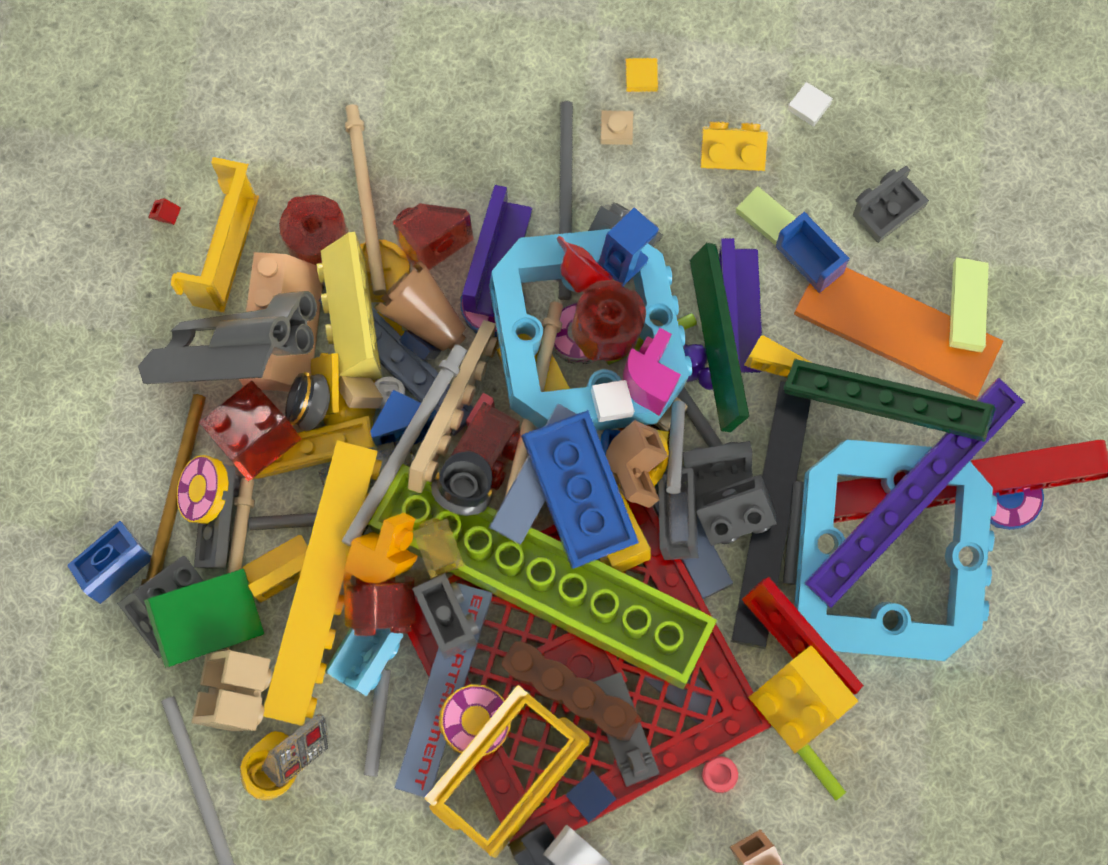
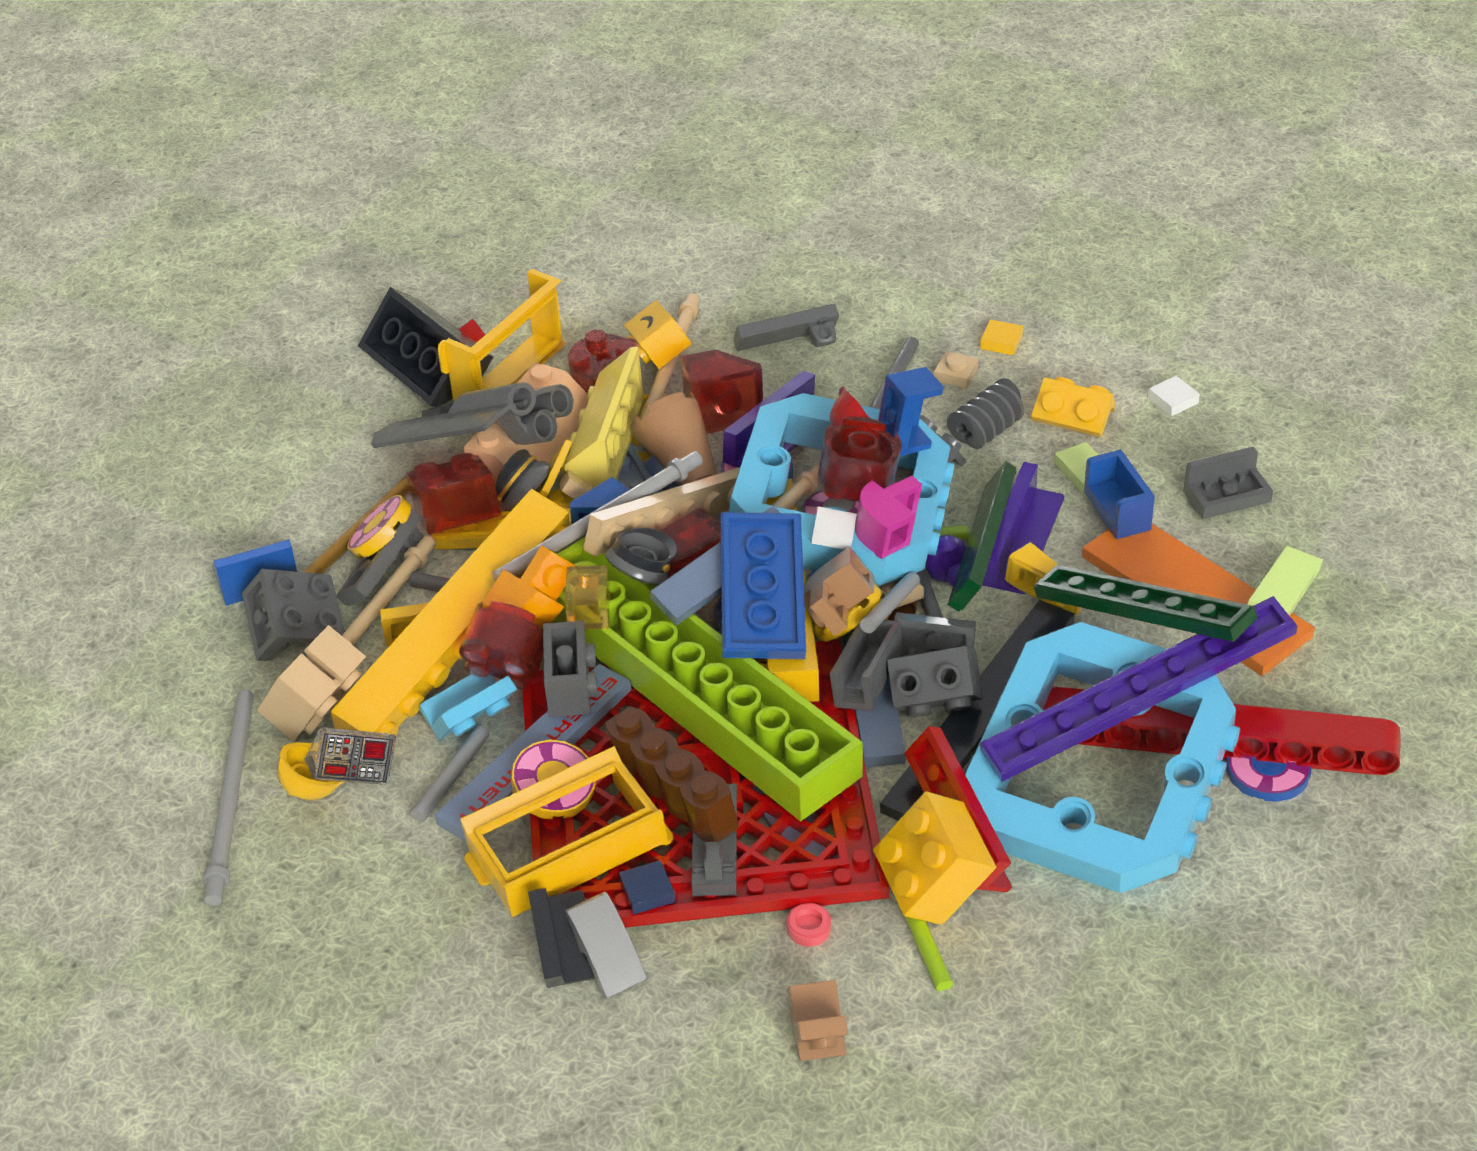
camera: 20 degrees right, 30 degrees down
(135, 251) = (406, 343): none -> black slope
(204, 617) = (302, 607): green tile -> none
(347, 179) = (657, 335): none -> yellow brick
(479, 112) = (815, 322): none -> dark grey hinge
(667, 182) = (987, 414): none -> dark grey piece

